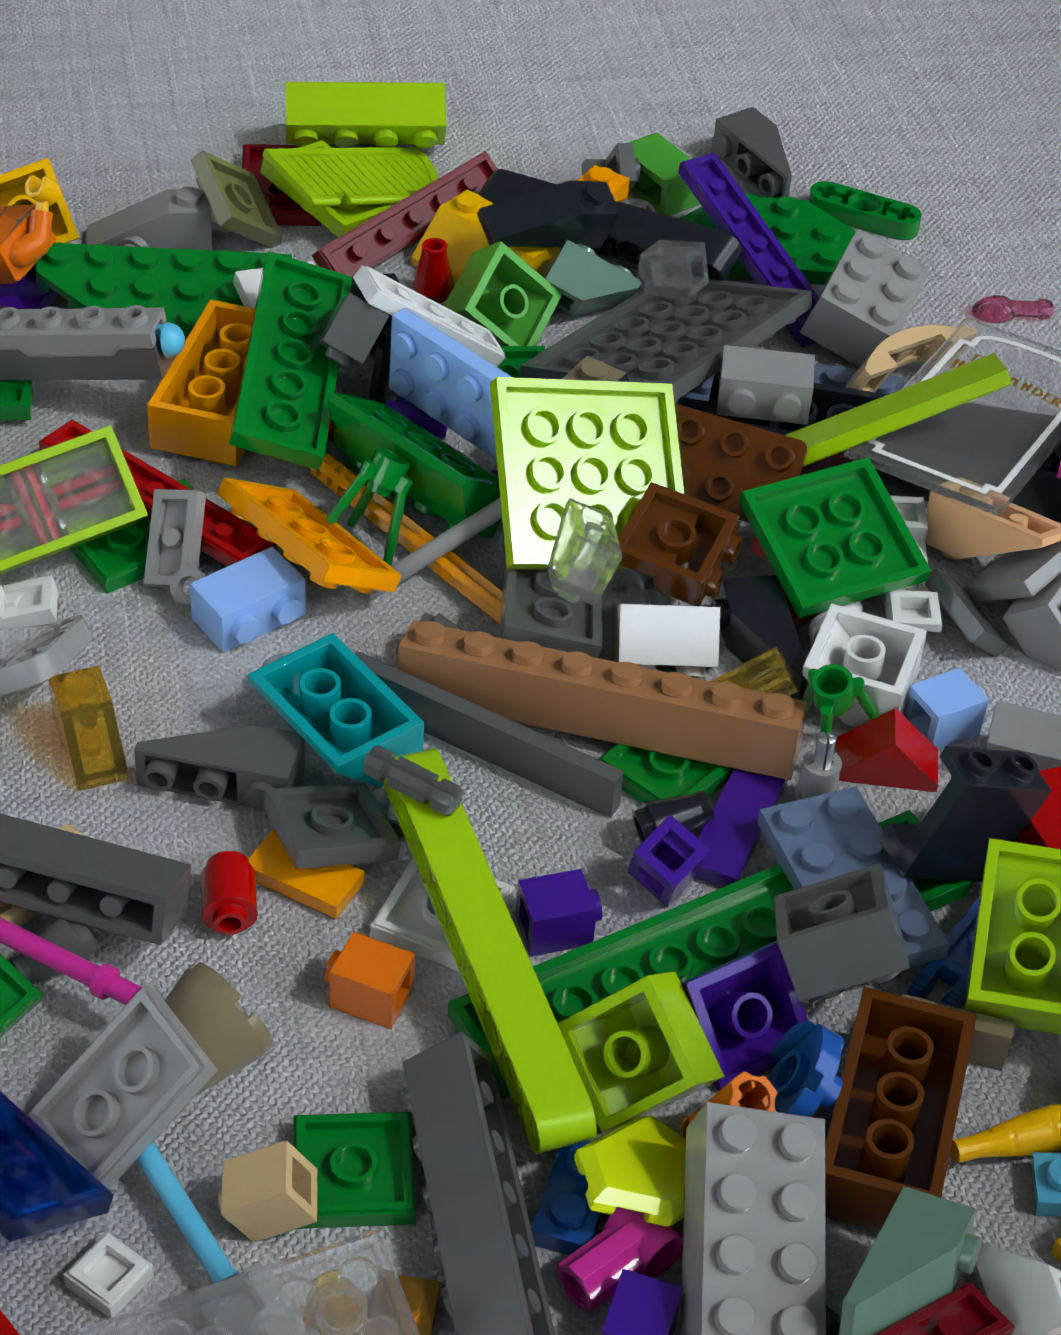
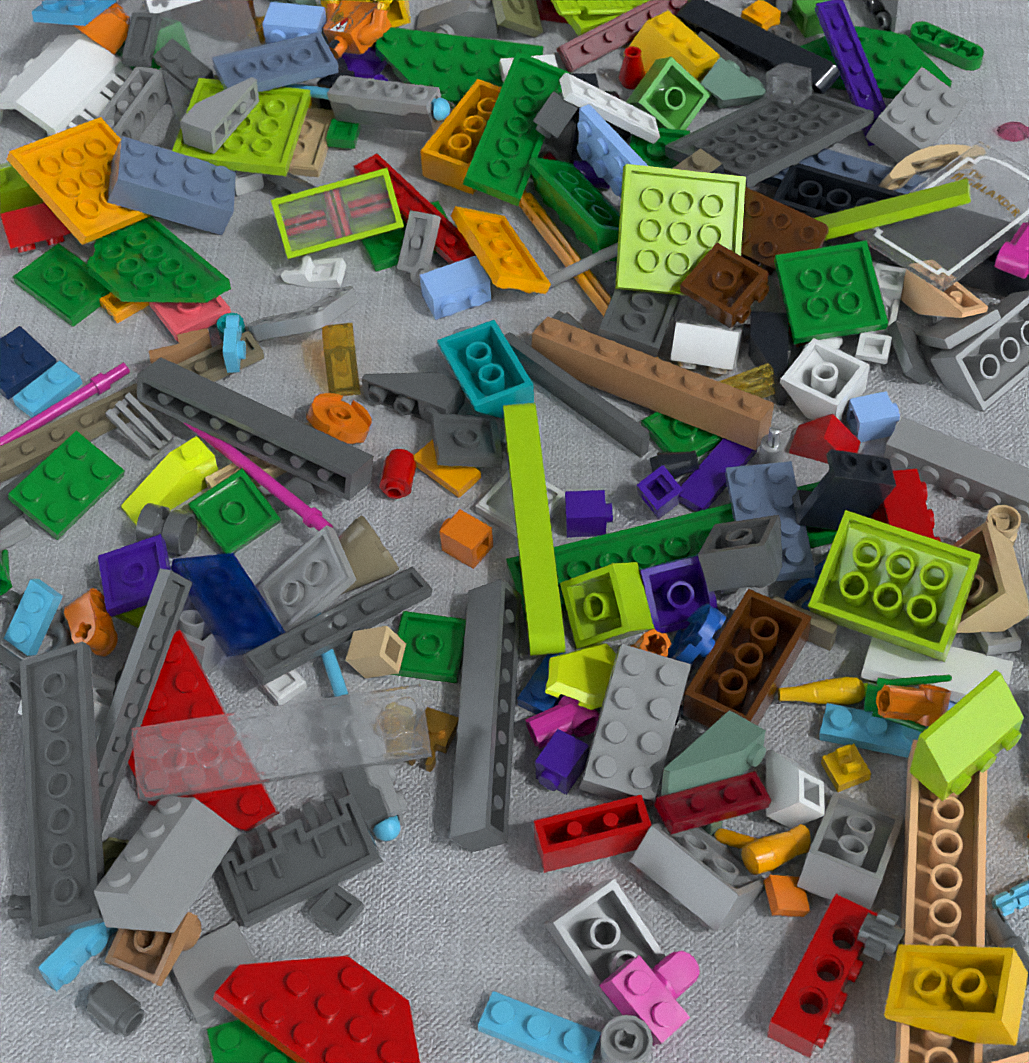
camera: 20 degrees right, 10 degrees up
(101, 815) = (339, 418): none -> orange plate
(184, 1161) = (336, 626): none -> dark grey tile
(380, 476) = (550, 218): green plant -> none
(413, 780) = (513, 422): dark grey axle -> none
(548, 217) = (709, 40): black slope -> none
(583, 553) = (662, 285): clear slope -> none
(765, 384) = (816, 179): light grey brick -> none
(833, 694) = (790, 401): green plant -> none

